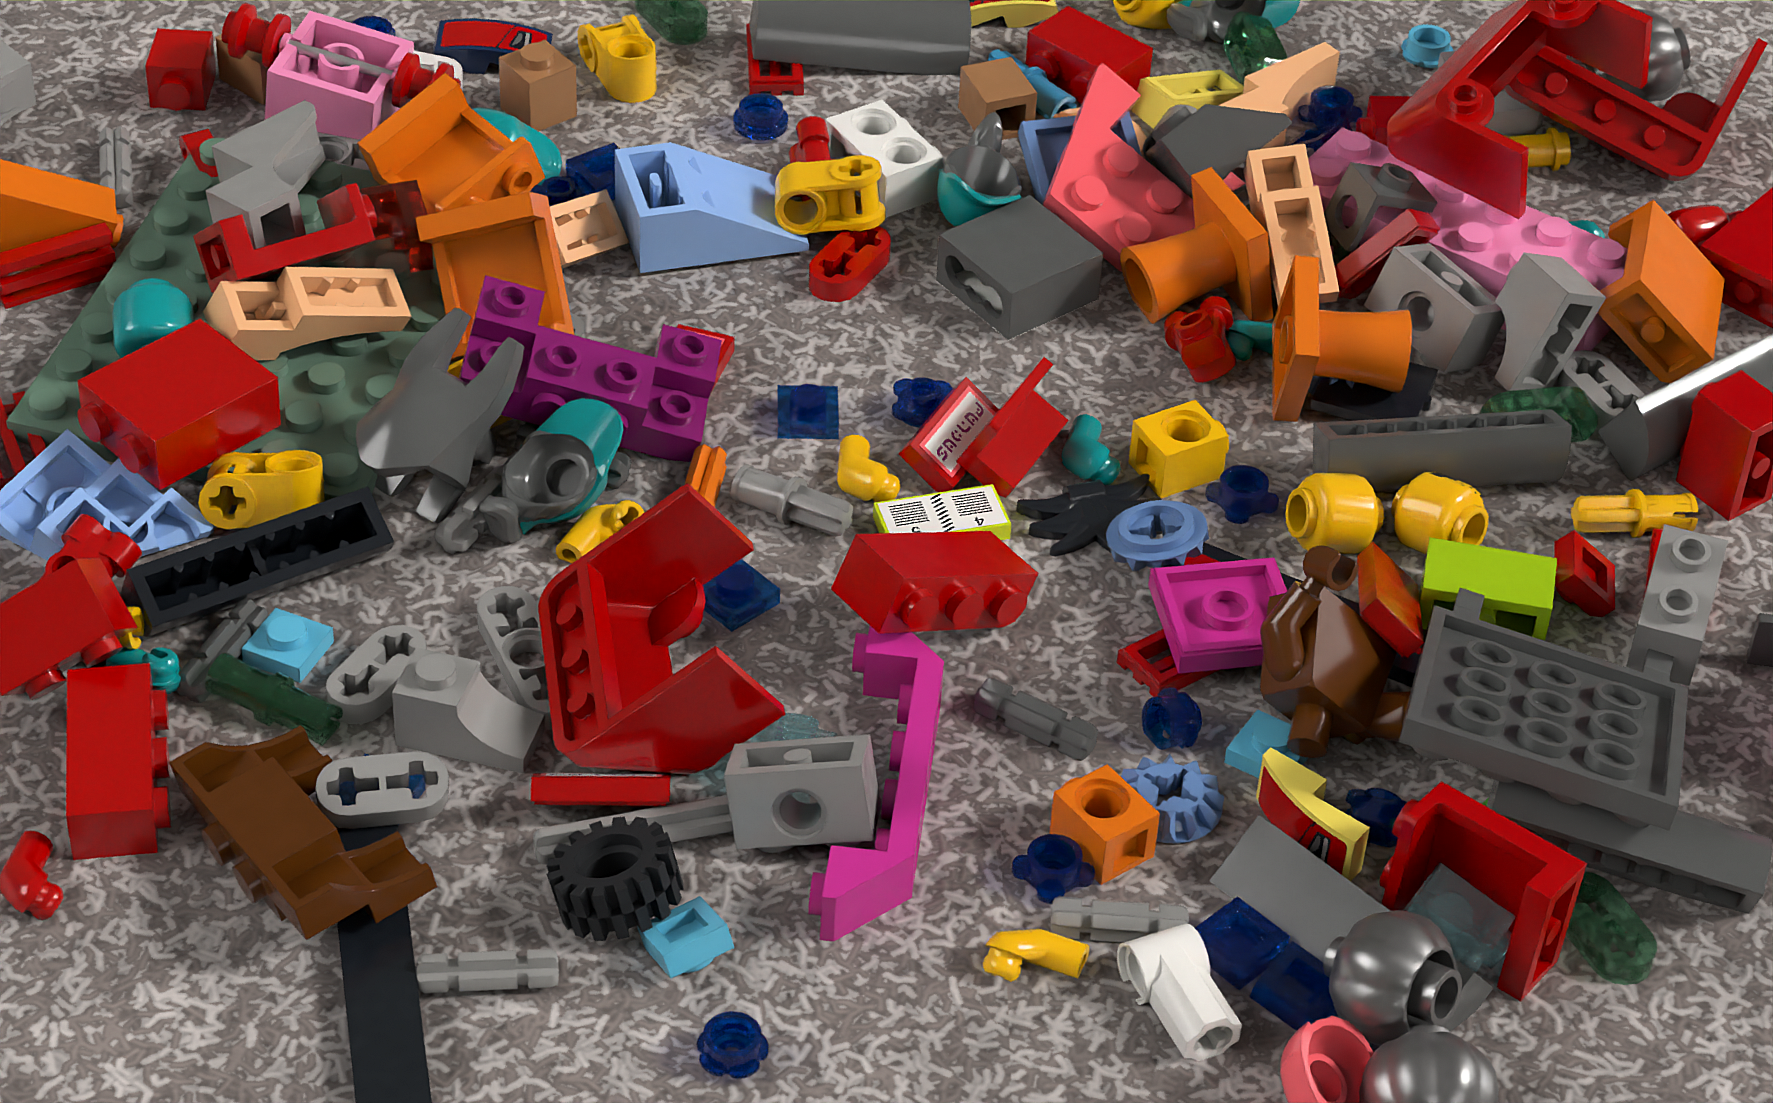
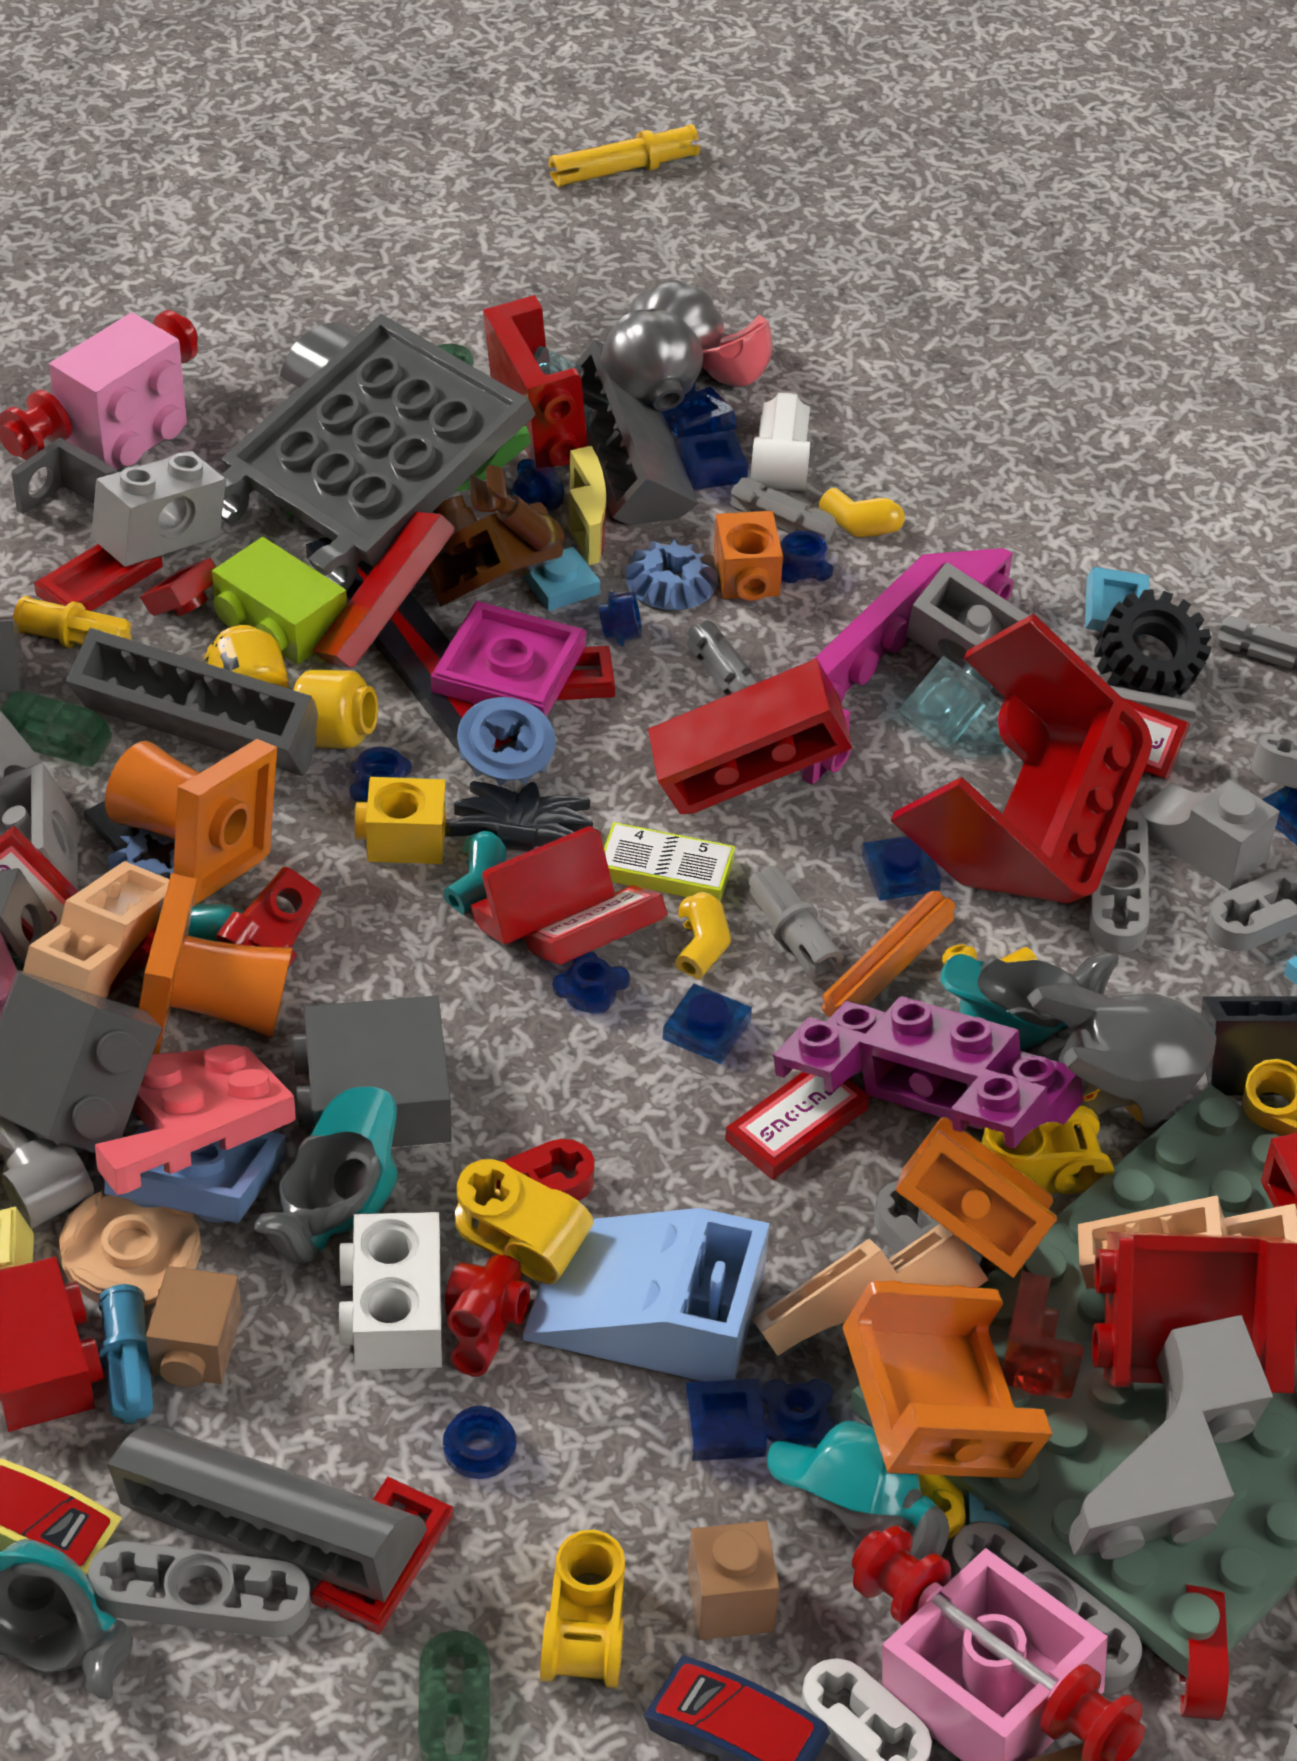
camera: 150 degrees left, 5 degrees up
(735, 1031) = (1121, 533): clear blue plate -> none

